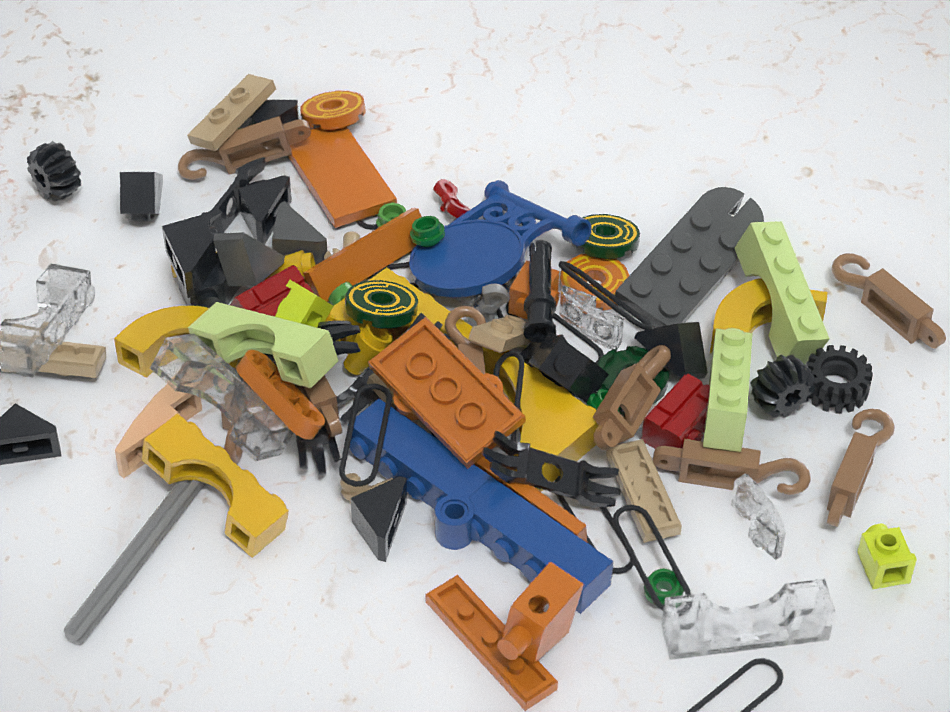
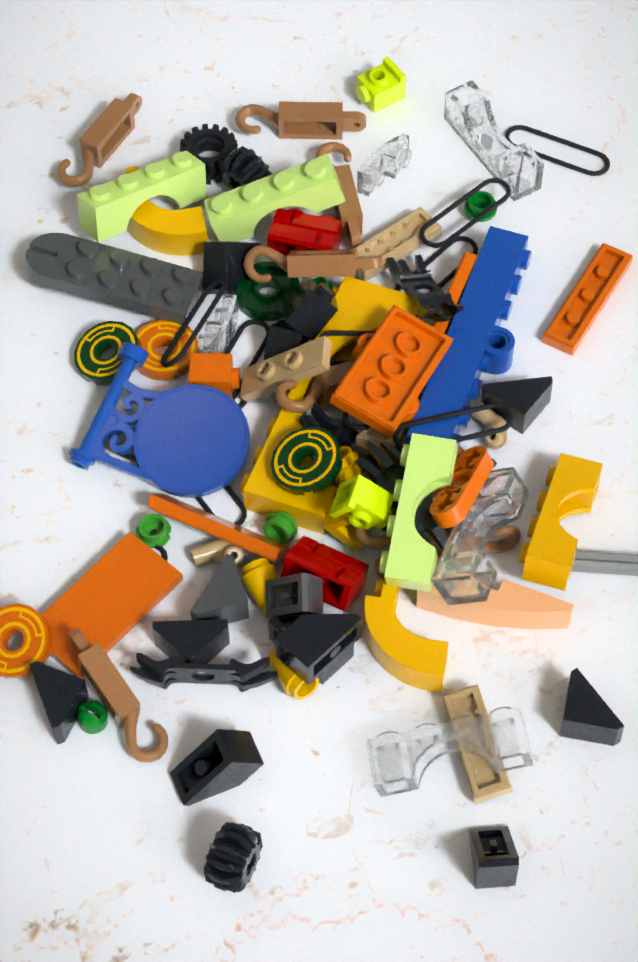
camera: 110 degrees left, 10 degrees up
(231, 112) = (83, 708): tan plate -> none
(427, 231) = (172, 471): green plate -> none
(448, 195) = (115, 482): red piece -> none
(493, 297) = (244, 396): light grey piece -> none
(531, 629) = (571, 250): orange torso -> none
(539, 303) = (247, 346): black pin -> none

